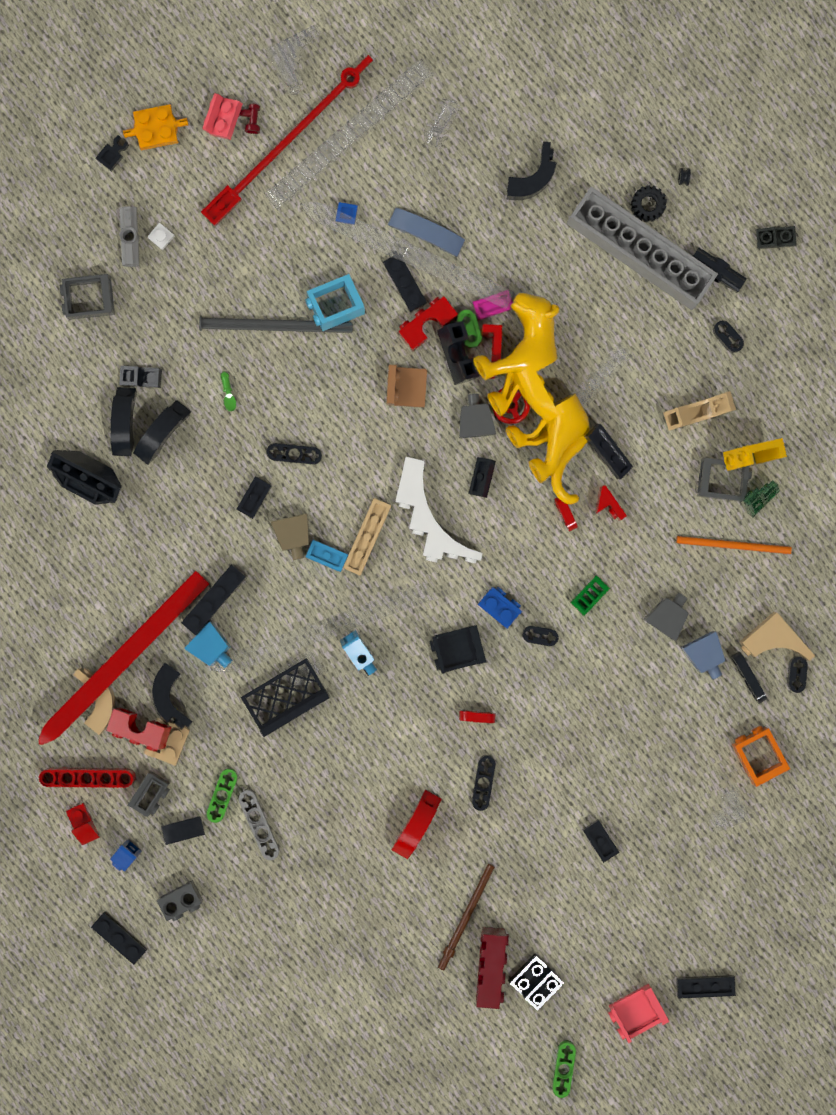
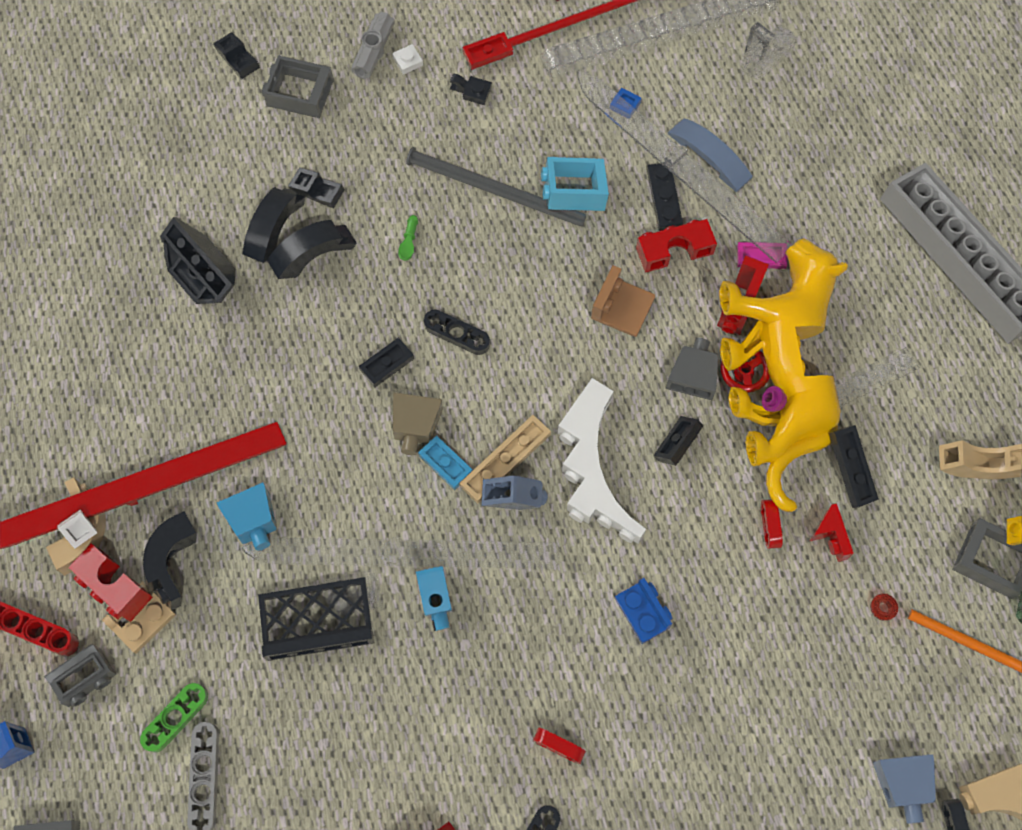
camera: 20 degrees right, 20 degrees down
(25, 285) = (236, 55): none -> black slope
(101, 704) = (77, 529): none -> white plate
(182, 830) = (99, 743): black slope -> none
(214, 599) = (302, 449): black arch -> none
(225, 244) = (473, 90): none -> black plate
(391, 560) = (525, 493): none -> sand blue torso
(452, 340) = (700, 269): black arch -> none
(458, 649) = (567, 644): black panel -> none
(472, 328) = (723, 270): bright green plate -> none
(531, 186) = (855, 145): black arch -> none
(539, 428) = (774, 399): none -> magenta plate
(541, 631) = (680, 675): black beam -> none
(574, 602) = (749, 651): green slope -> none
(652, 192) = (994, 200): black tyre -> none
(663, 537) = (891, 604): none -> clear red plate
(669, 616) = (870, 711): dark grey torso -> none

